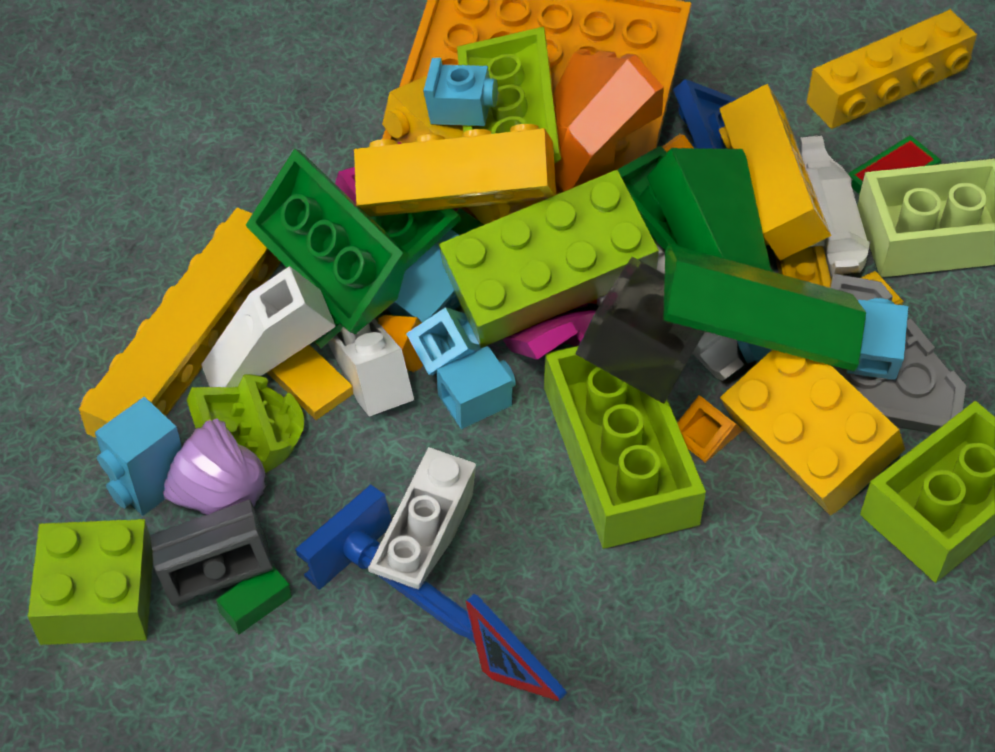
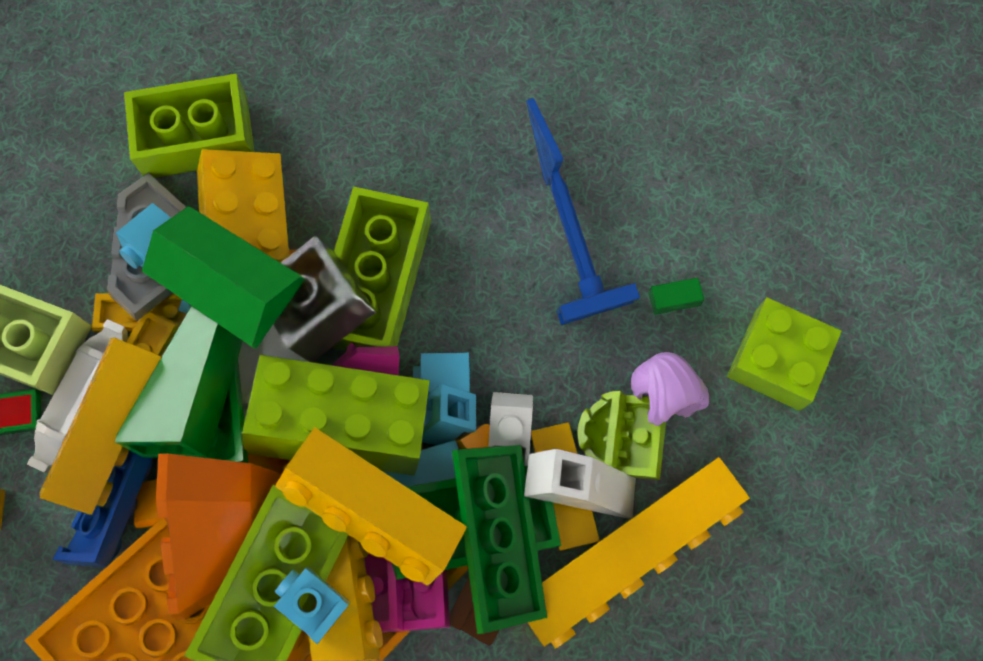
camera: 150 degrees left, 20 degrees up
(138, 455) = (719, 424): medium azure brick -> none
(210, 552) = (696, 331): dark grey brick -> none
(425, 519) = (543, 275): white slope -> none

